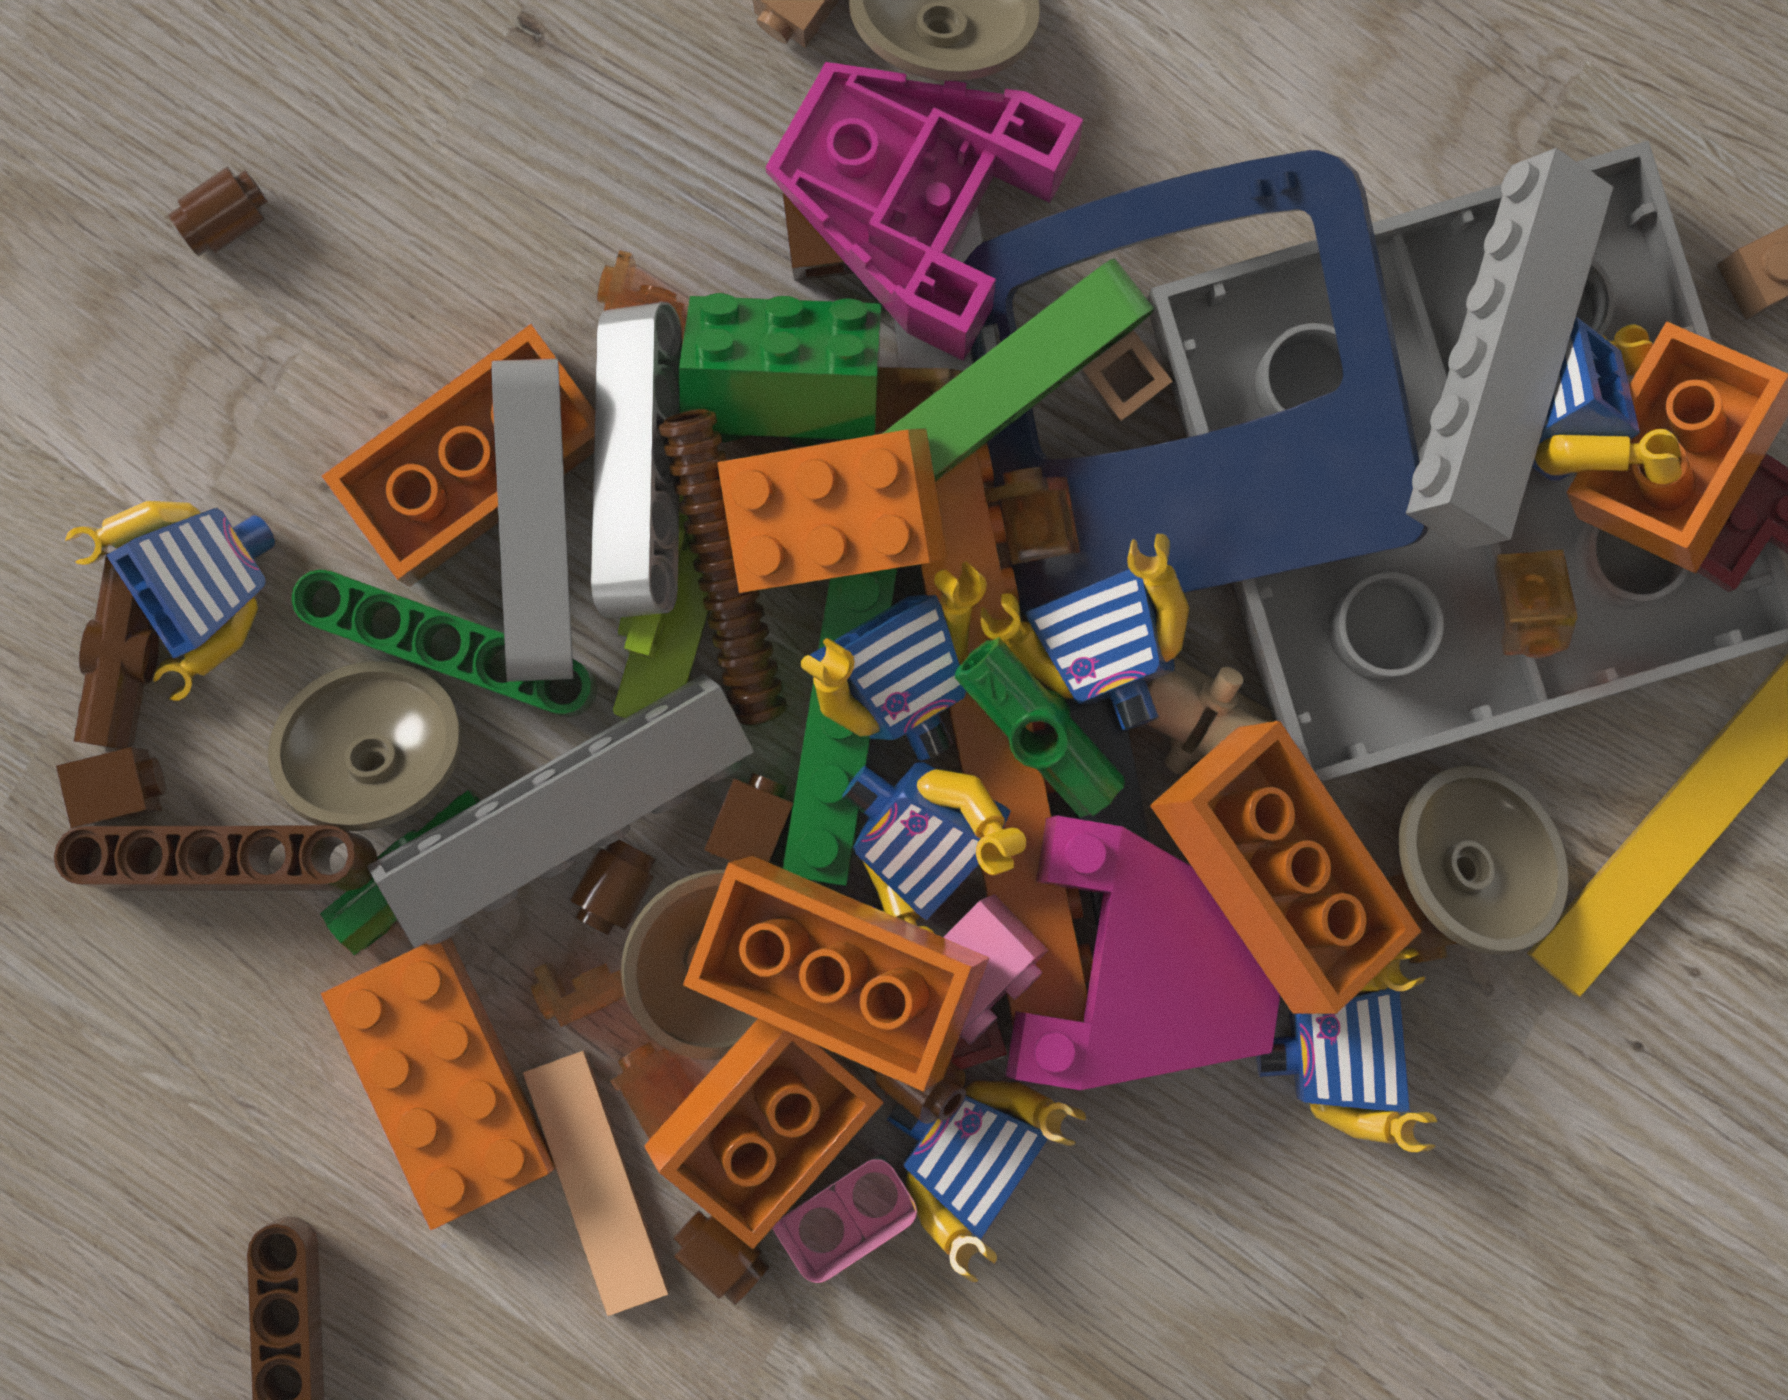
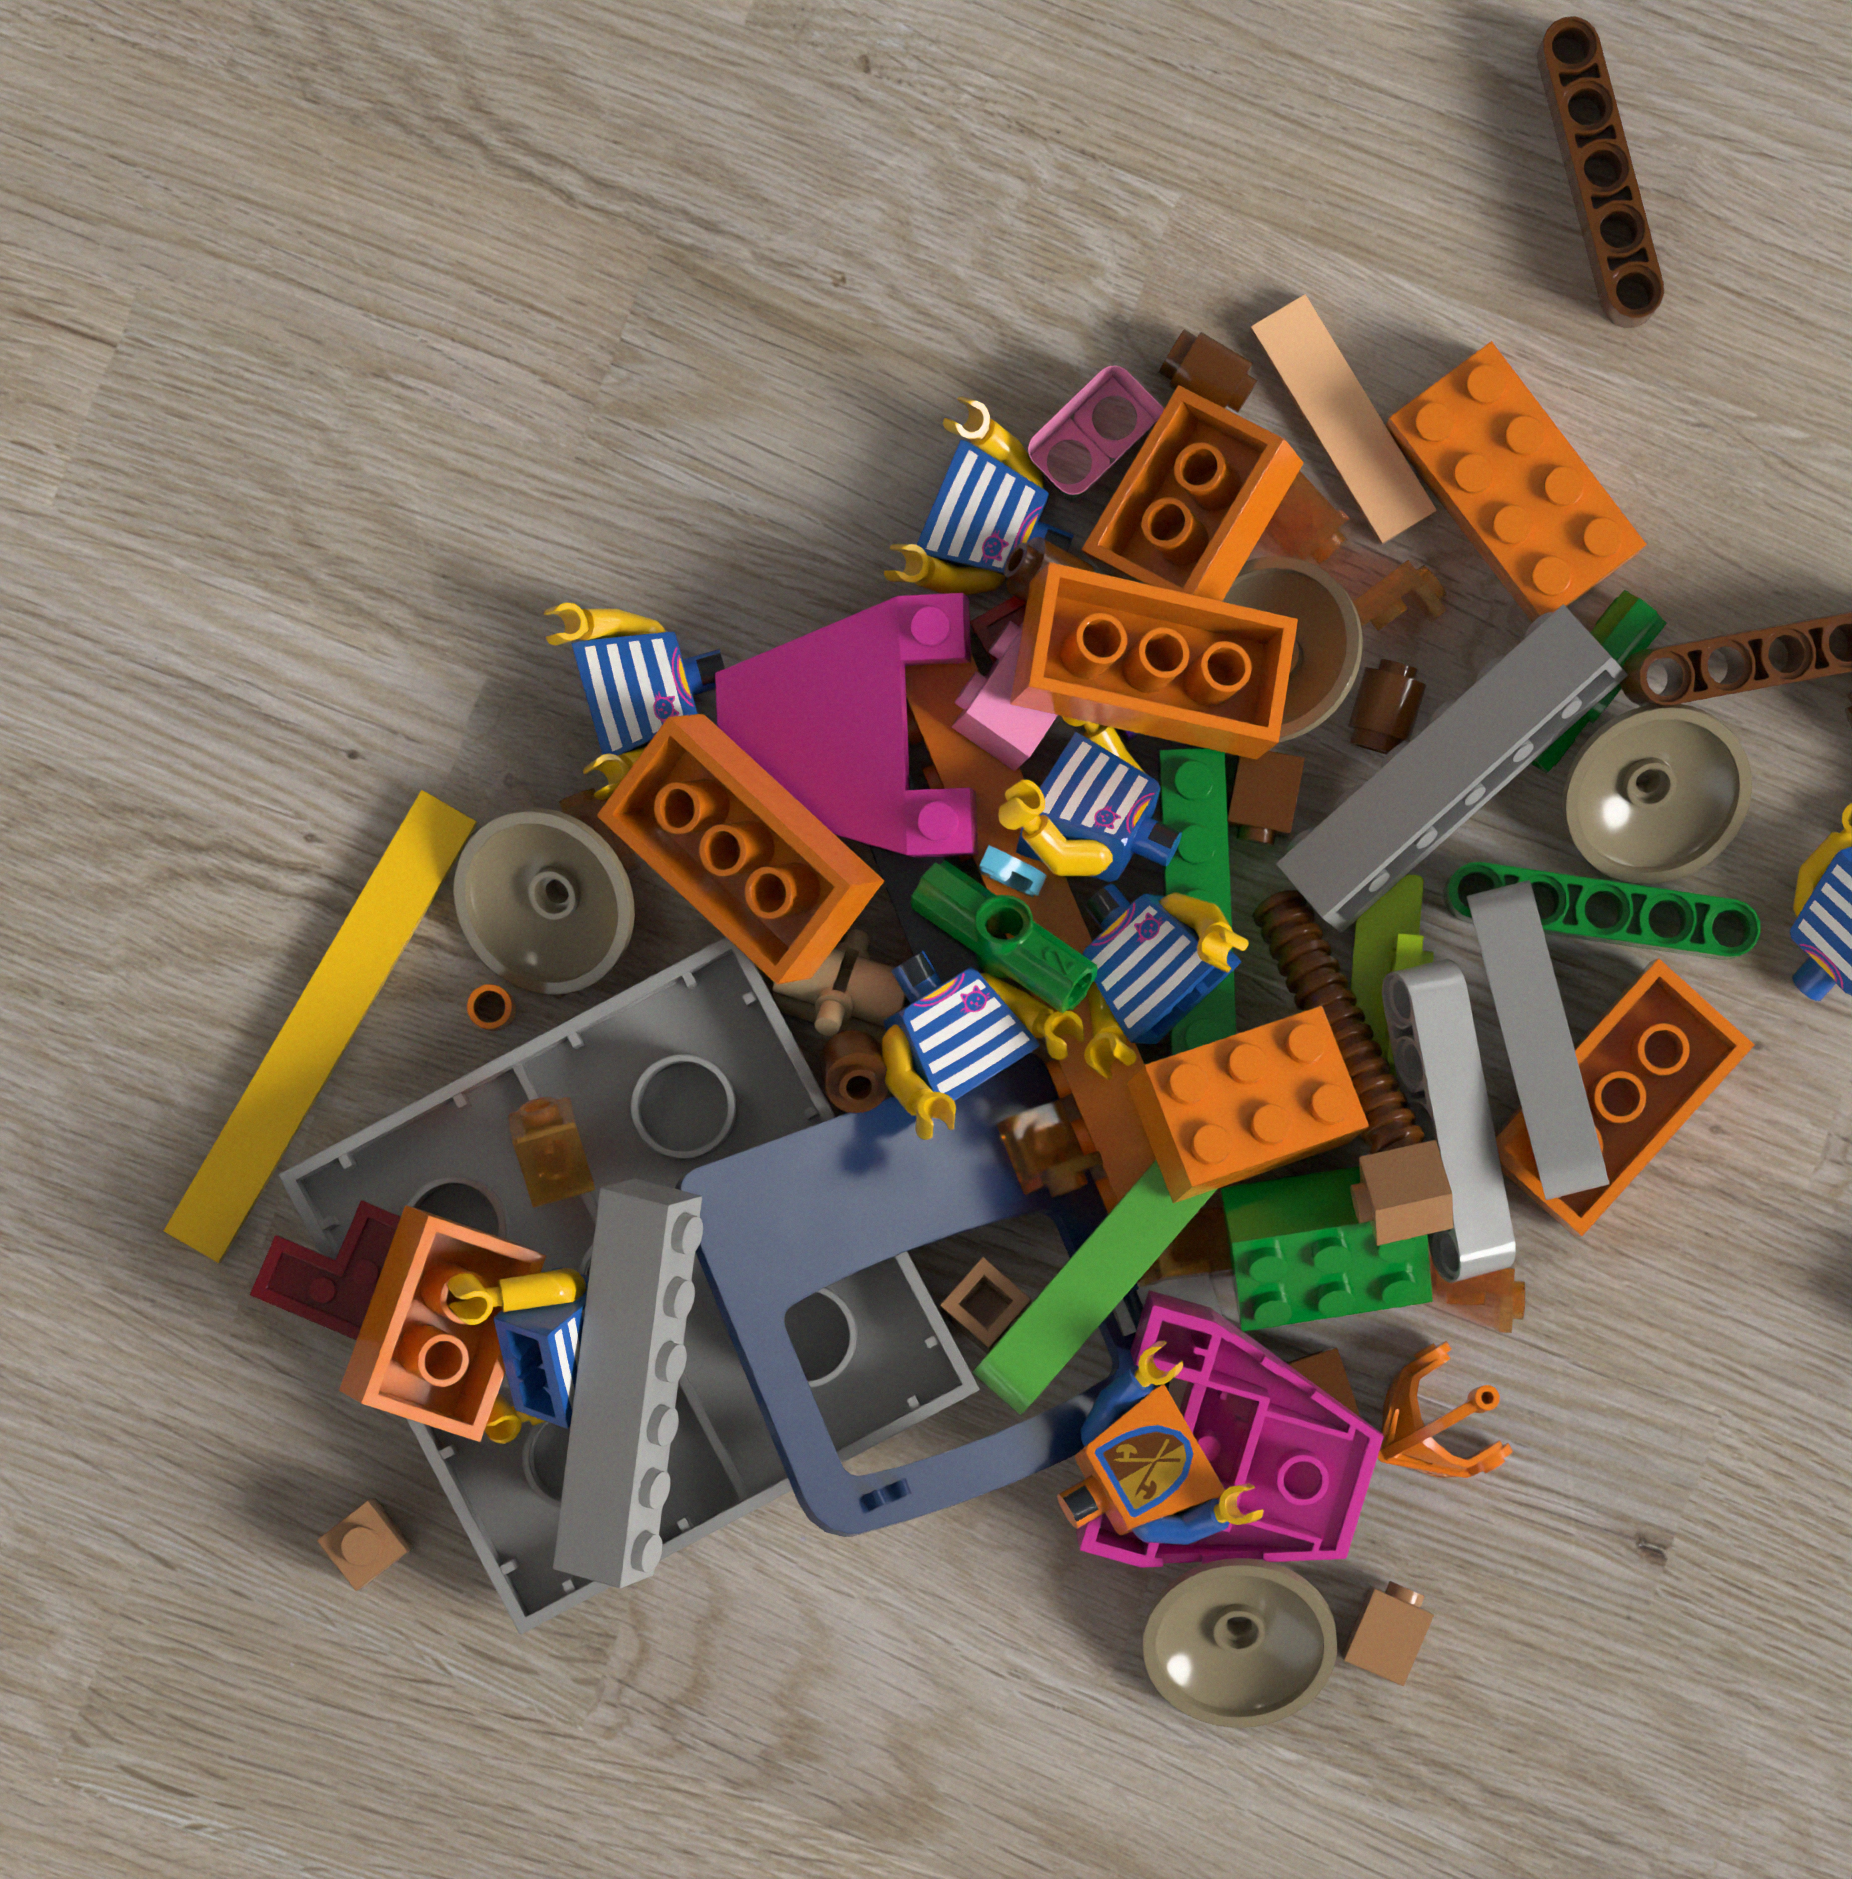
camera: 175 degrees right, 0 degrees up
(696, 387) = (1403, 1193): none -> medium nougat brick
(743, 184) = (1411, 1443): none -> orange helmet
(1001, 177) = (1148, 1465): none -> torso
(1017, 792) = (1011, 872): none -> medium azure tile
(1215, 624) = (854, 1071): none -> reddish brown brick
(1568, 767) = (474, 1000): none -> orange hinge

